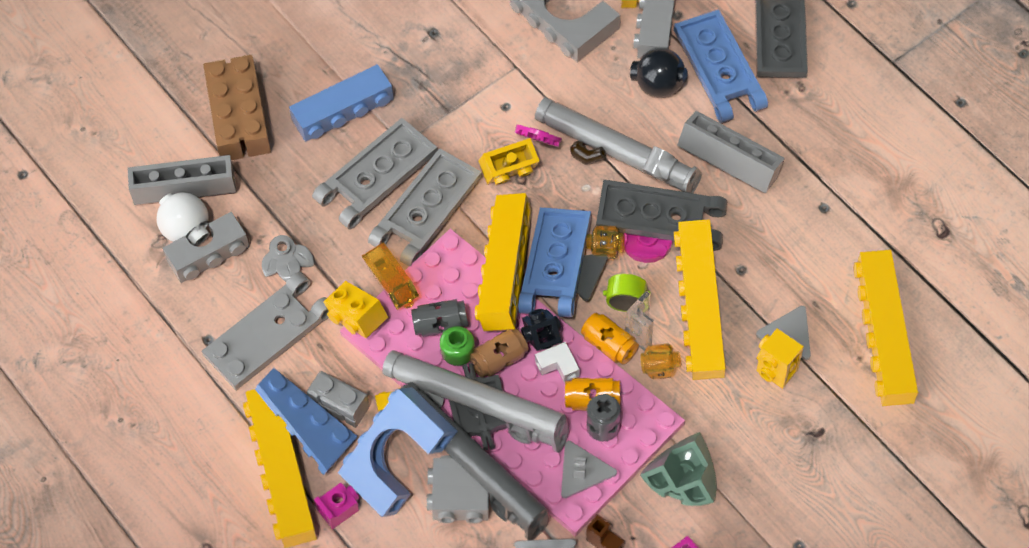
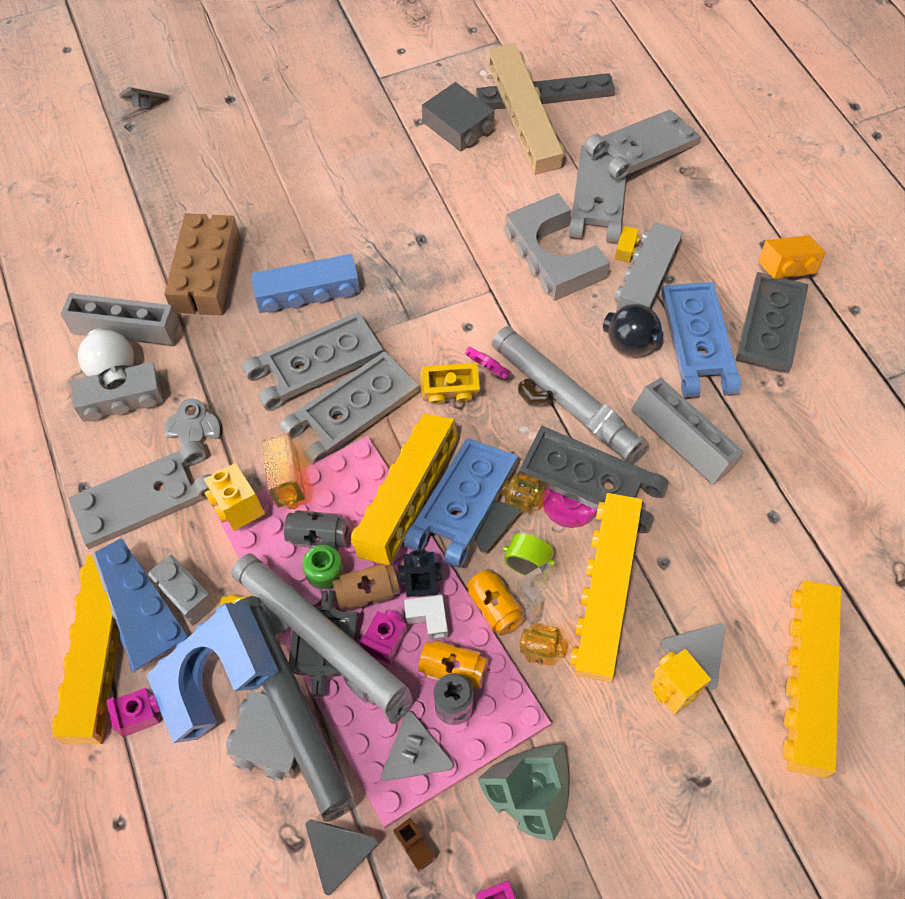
camera: 15 degrees right, 0 degrees up
(529, 375) = (386, 645): none -> dark pink brick

